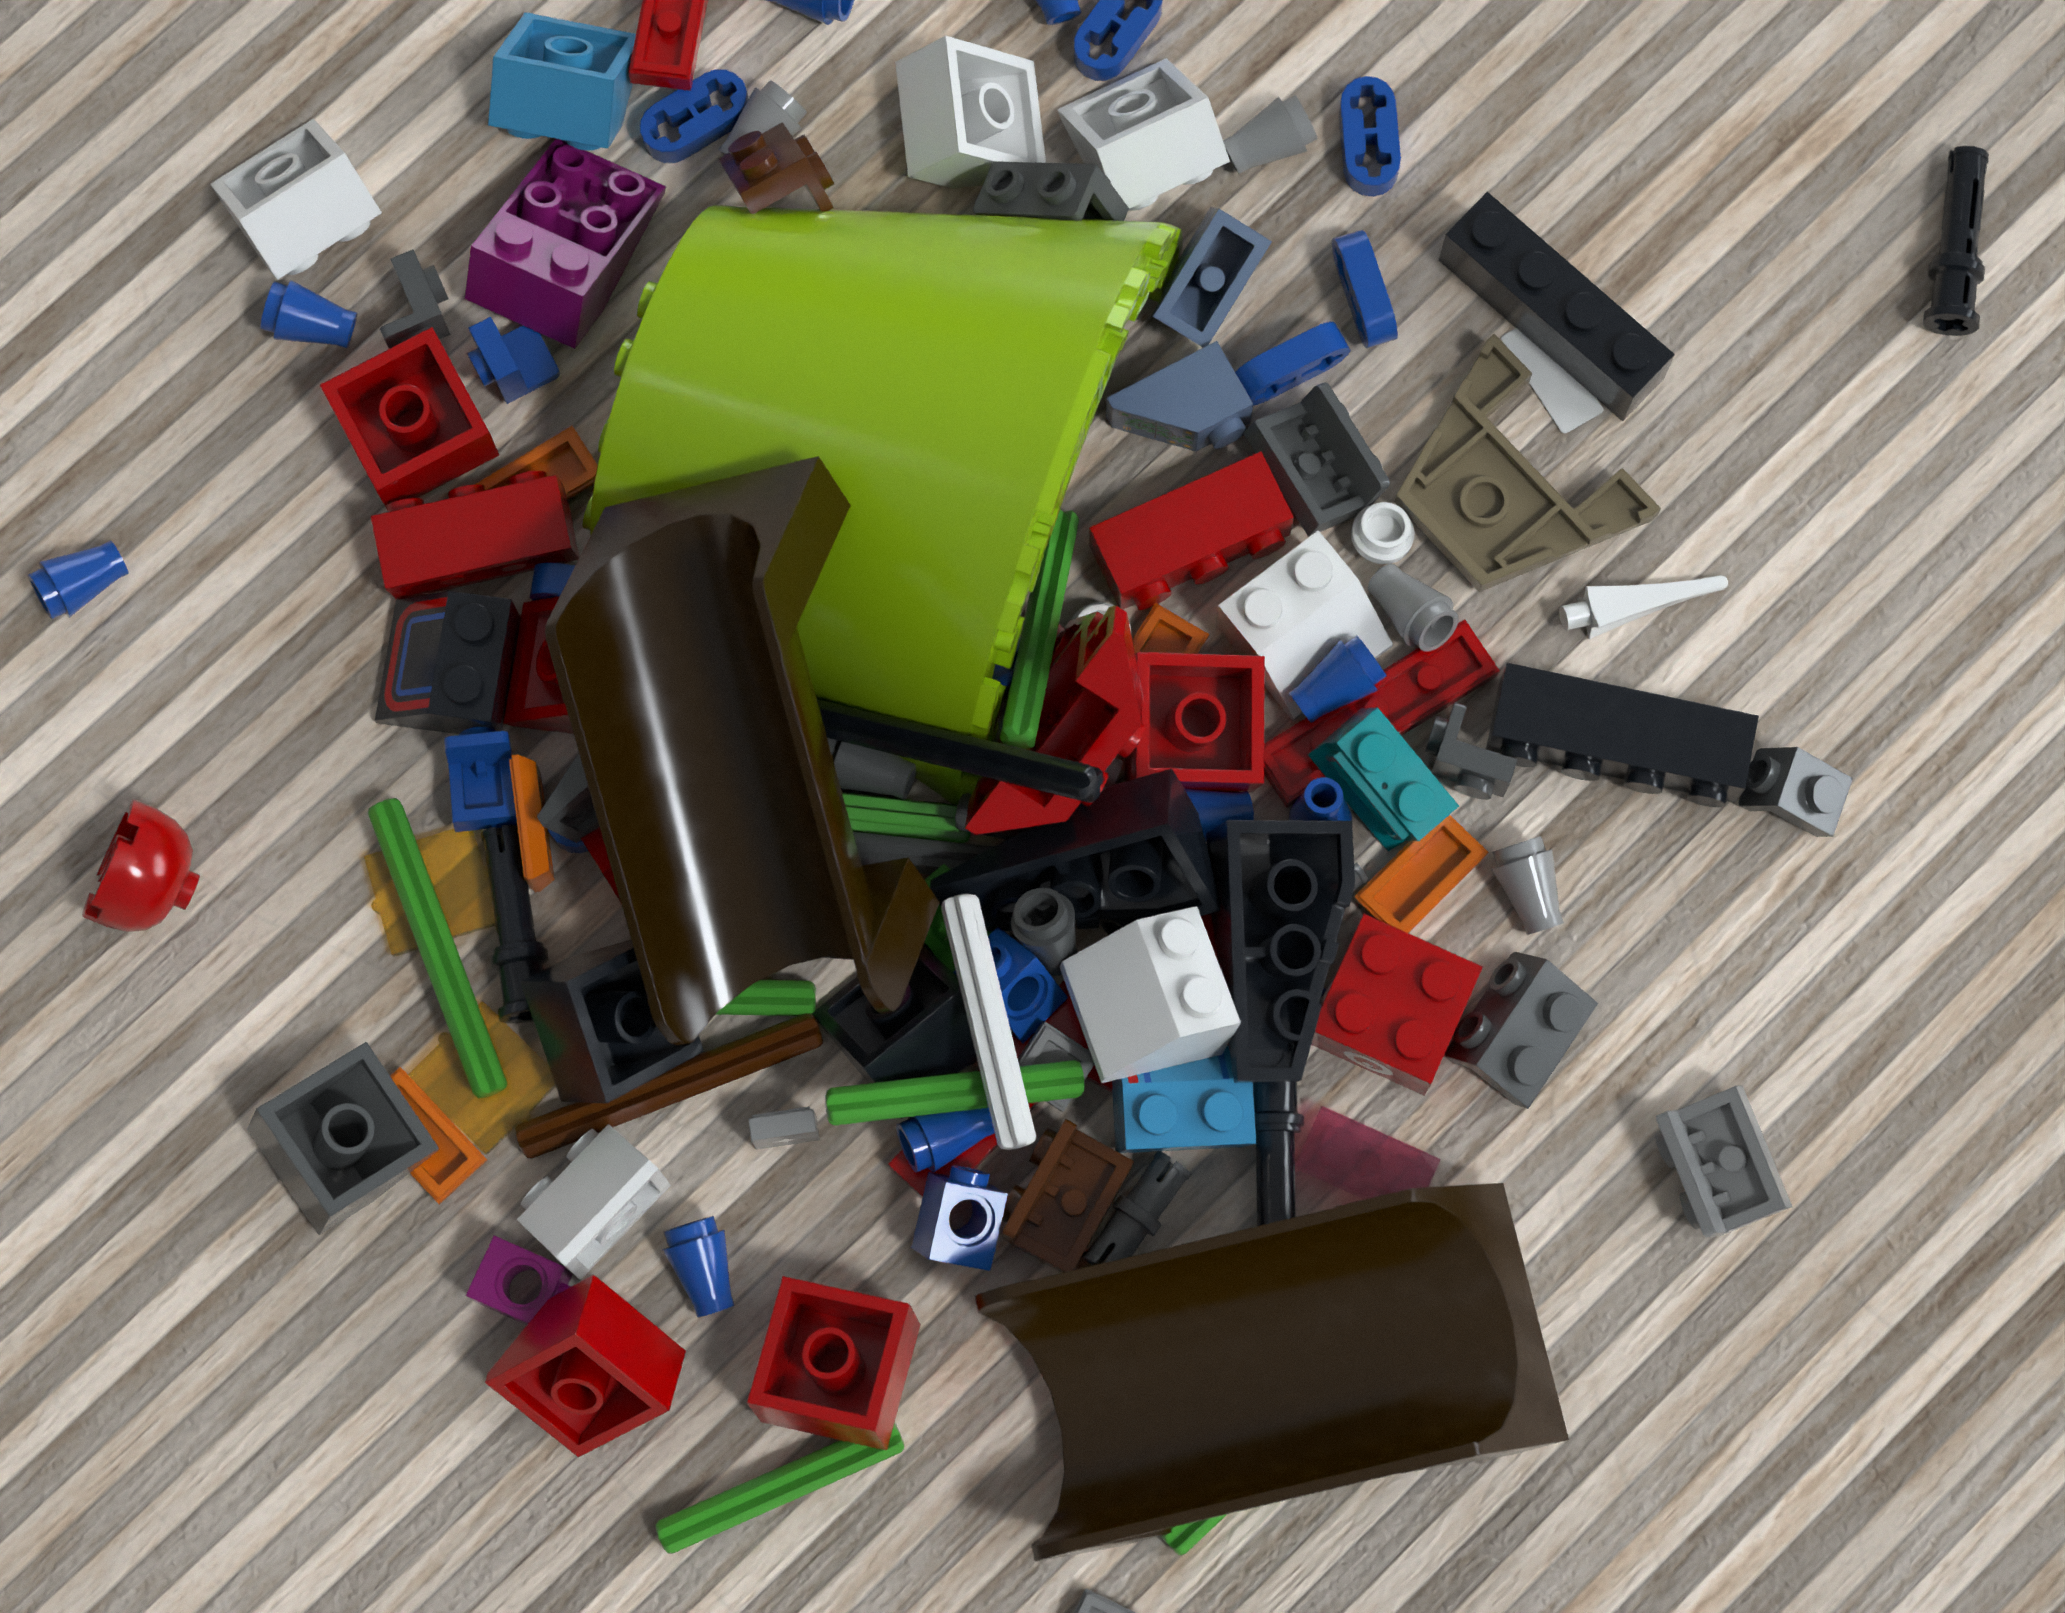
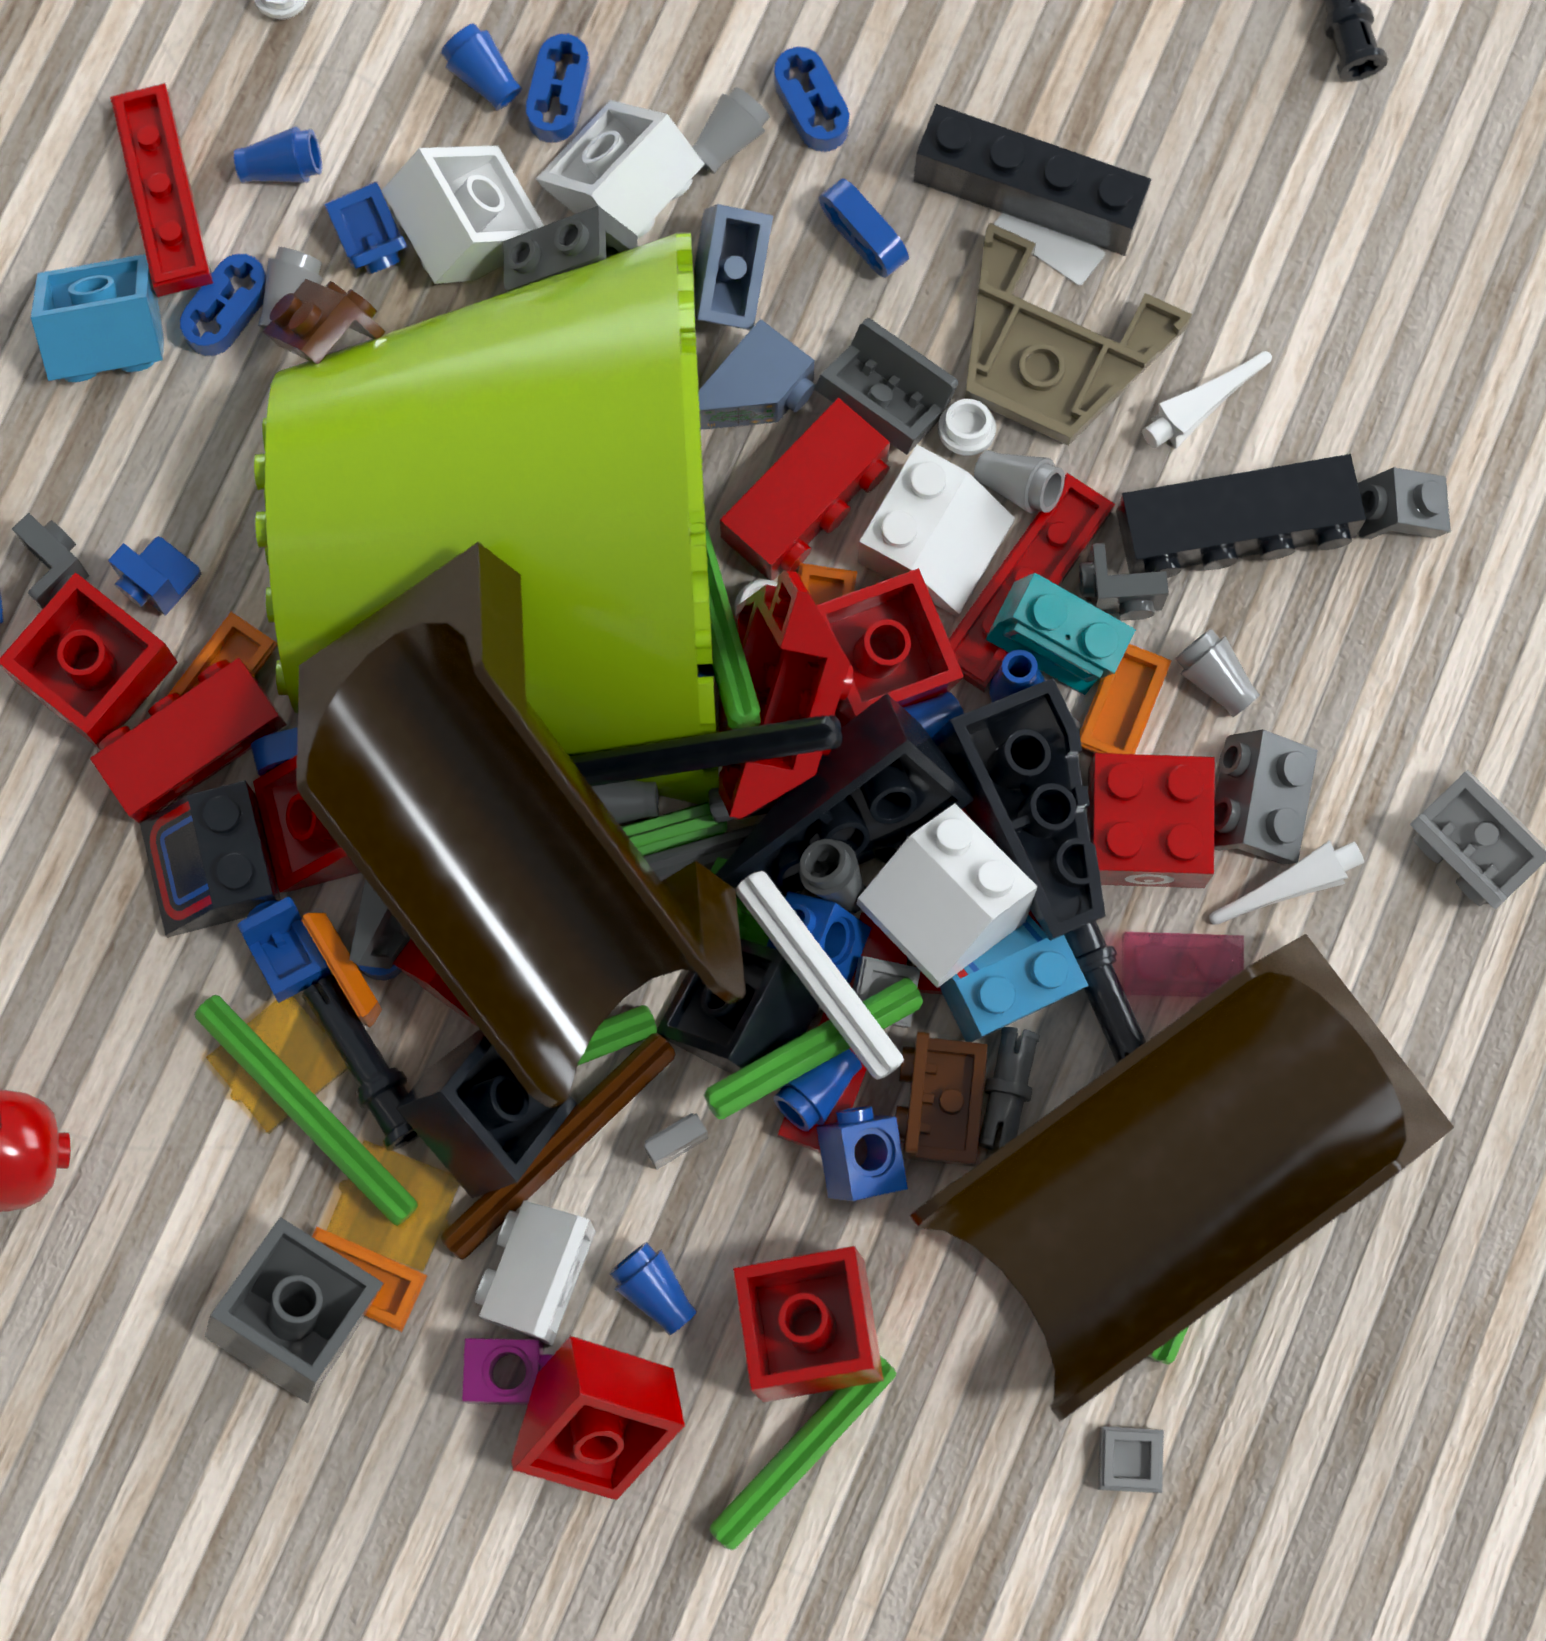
camera: 25 degrees left, 0 degrees up
(561, 242) = (155, 457): magenta slope -> none
(865, 94) = (366, 228): none -> blue bracket
(1293, 362) = (831, 312): blue beam -> none
(1338, 679) = (986, 563): blue cone -> none
(1538, 1125) = (1315, 872): none -> white piece

